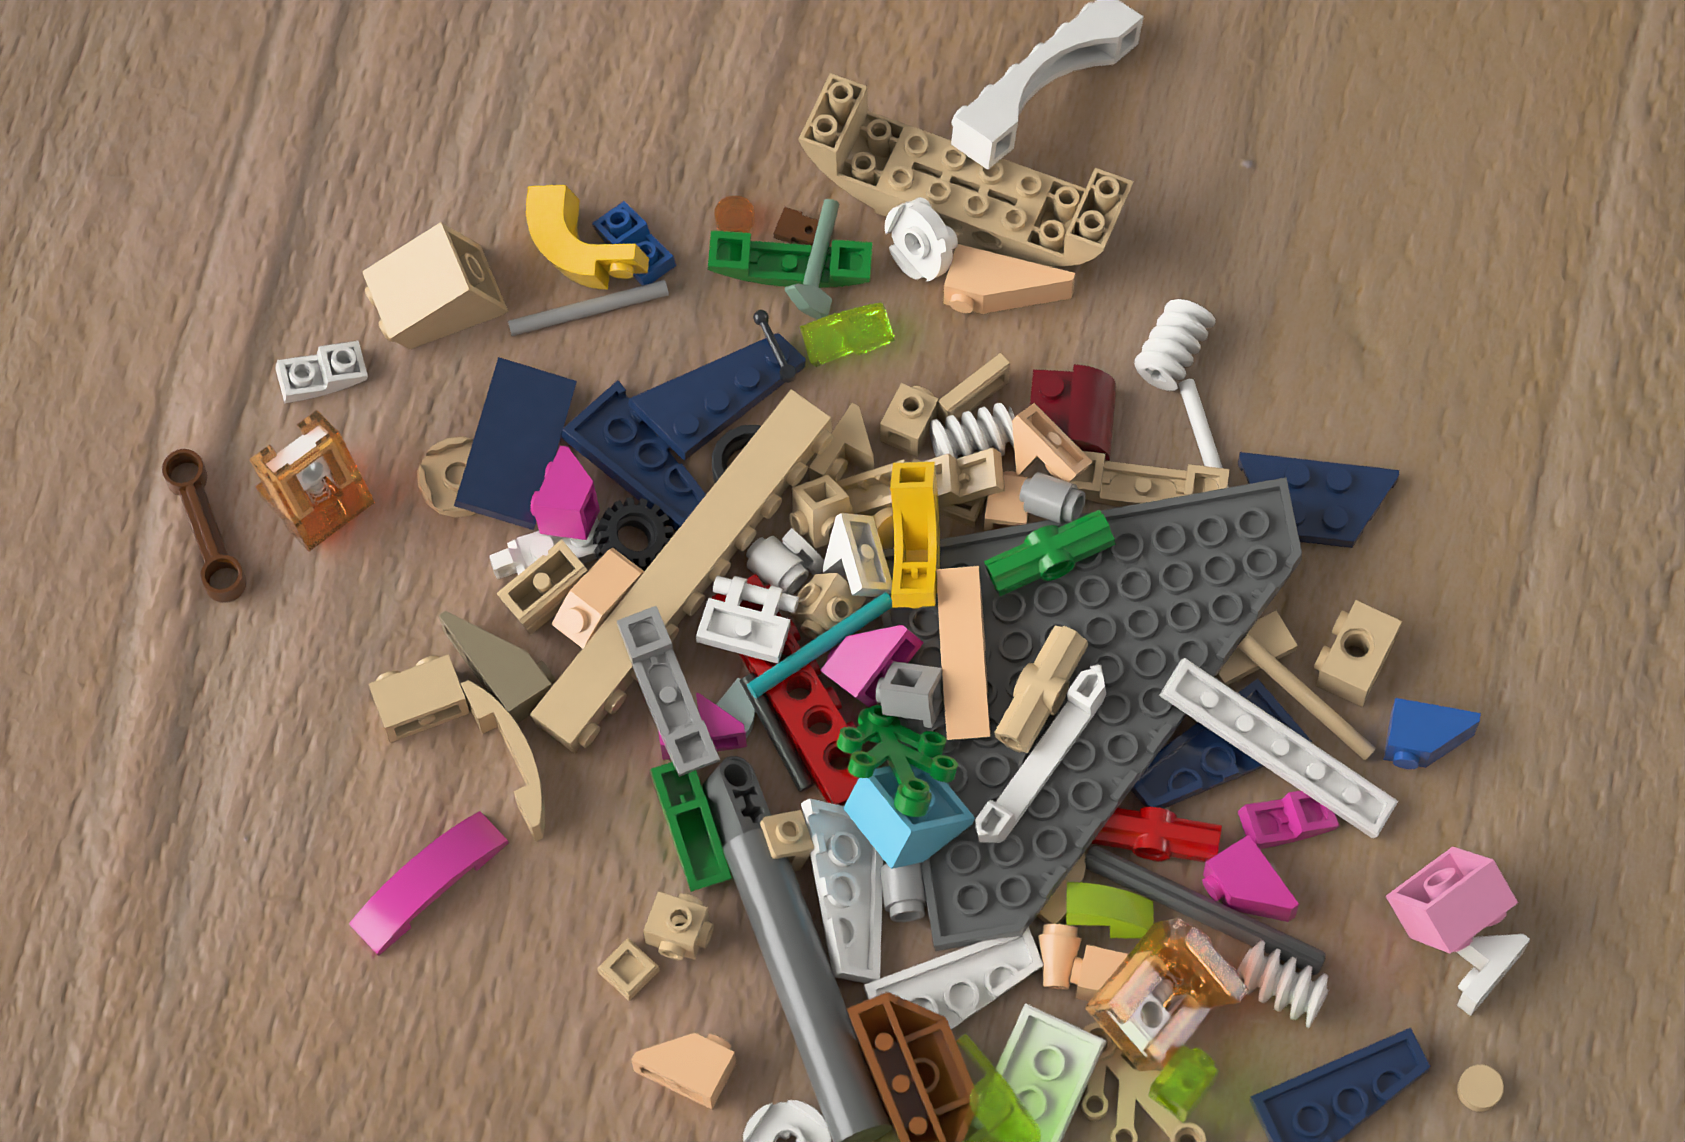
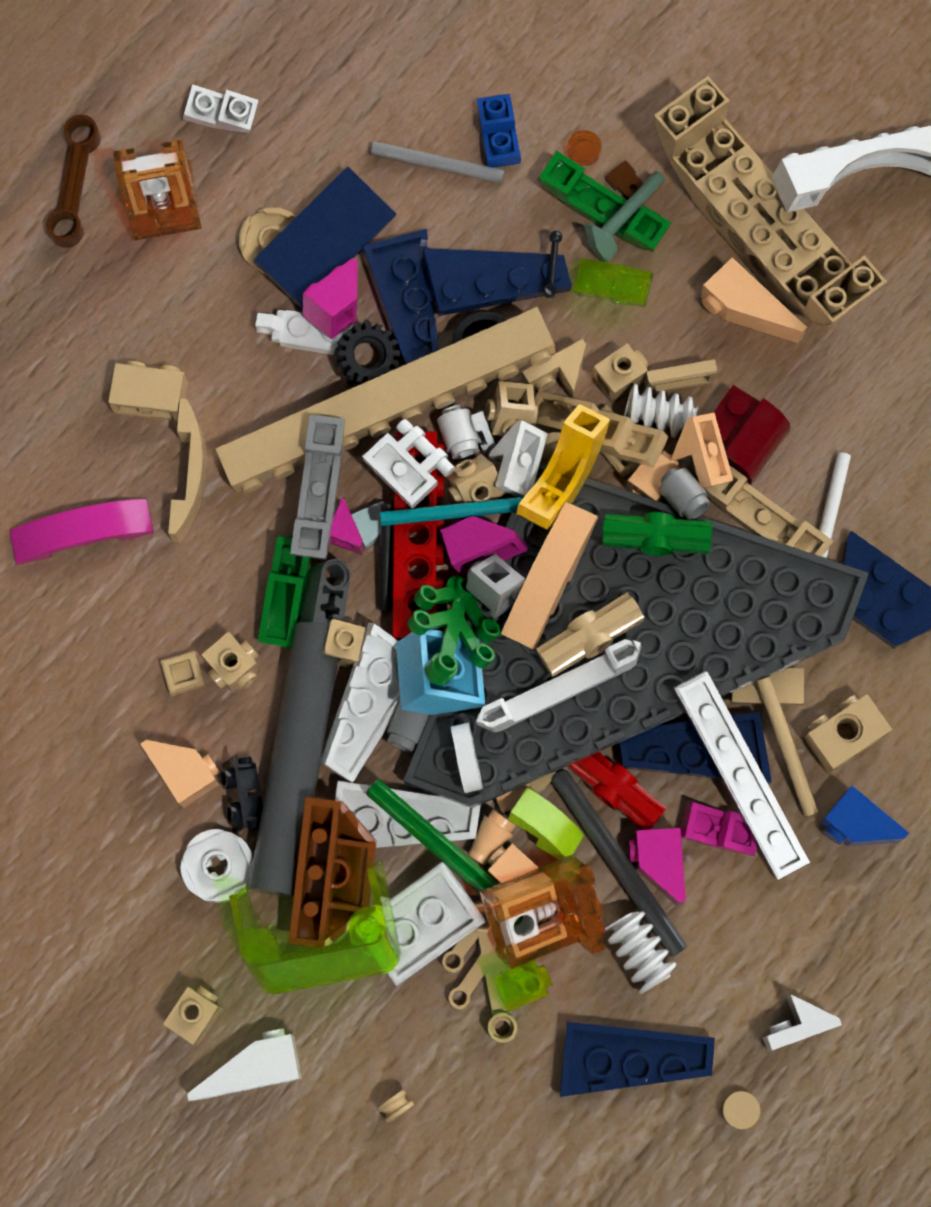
camera: 30 degrees right, 10 degrees up
(433, 288) = (333, 88): slope -> none
(500, 666) = (219, 406): dark tan slope -> none
(543, 587) = (281, 359): tan brick -> none
(553, 227) = (443, 94): yellow arch -> none
(596, 596) = (311, 386): light nougat slope -> none
(755, 1044) = (238, 780): none -> black hinge
(919, 222) = (707, 241): white plate -> none
(988, 881) = (466, 757): none -> white beam
(997, 987) = (431, 838): none -> green axle
(1172, 342) = (849, 418): white piece -> none
(1452, 900) = (800, 963): bright pink brick -> none

